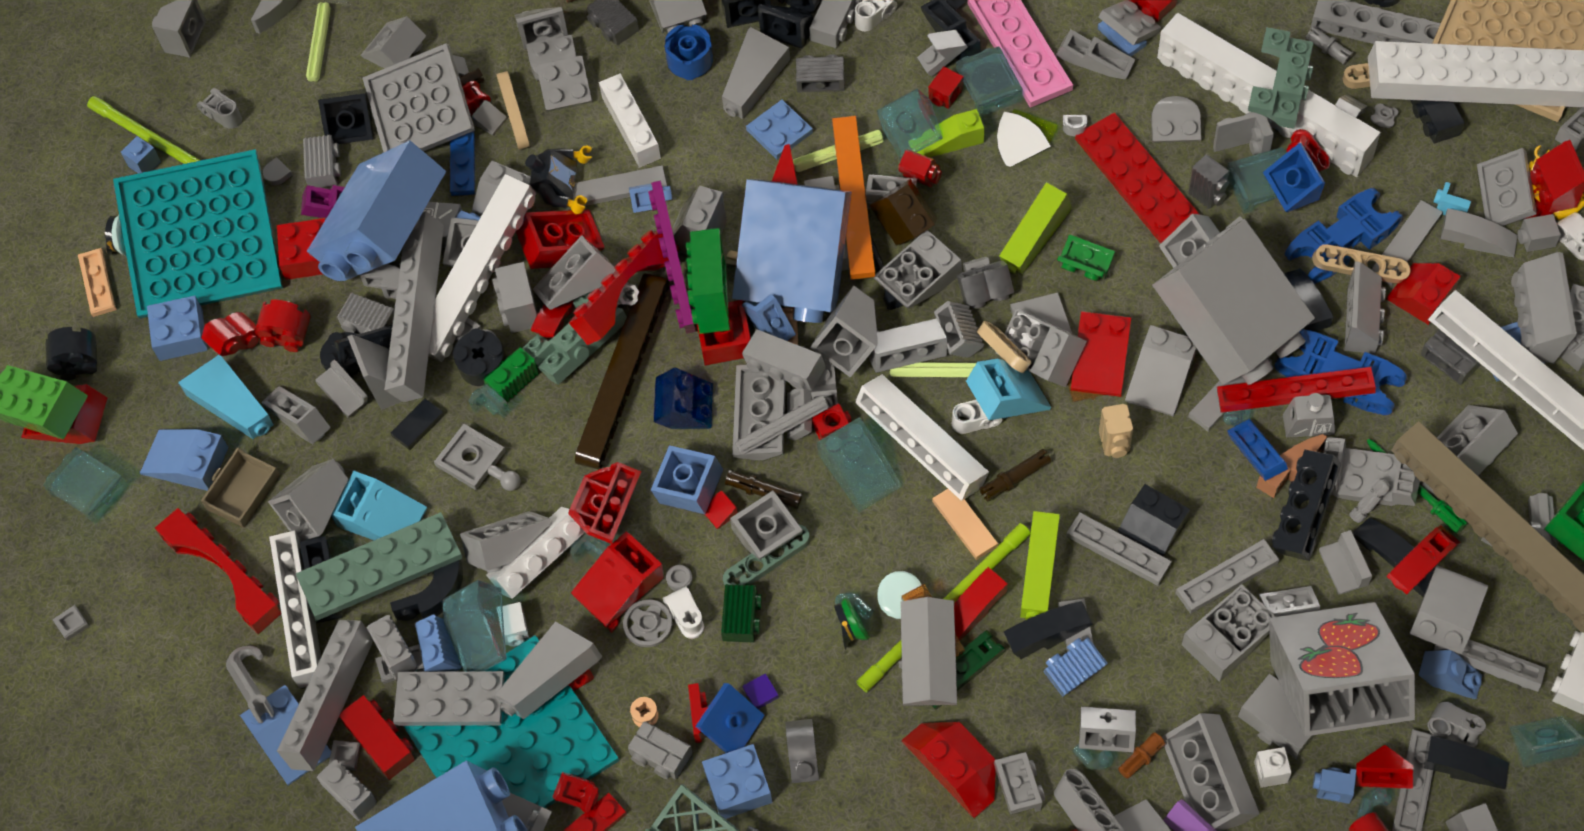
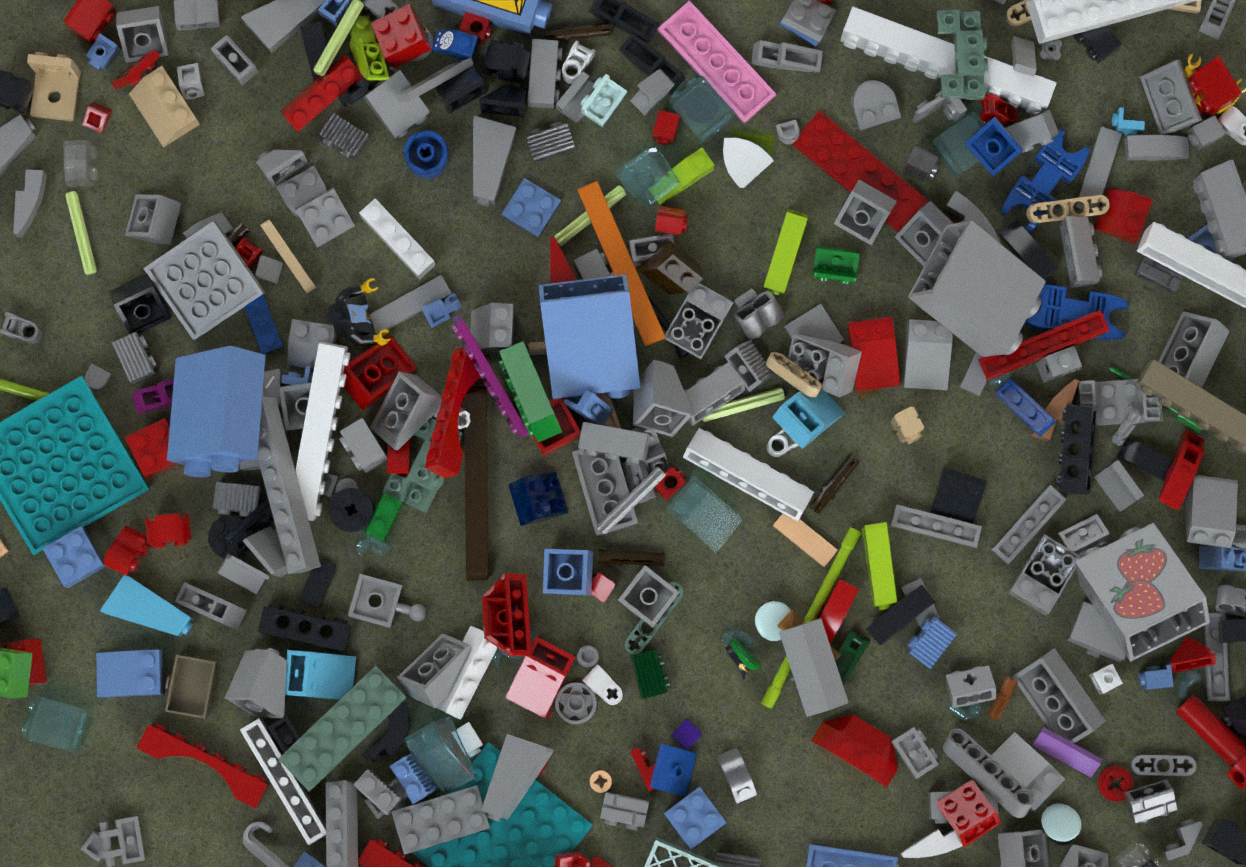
camera: 25 degrees left, 20 degrees up
(106, 623) = (128, 839): none -> light grey plate
(413, 484) = (270, 626): none -> black brick
(863, 41) = (571, 100): none -> light grey panel
(888, 48) = (603, 100): none -> light aqua bracket
(1133, 211) = (865, 212): none -> light grey brick
(1344, 178) = (1033, 130): none -> light grey brick

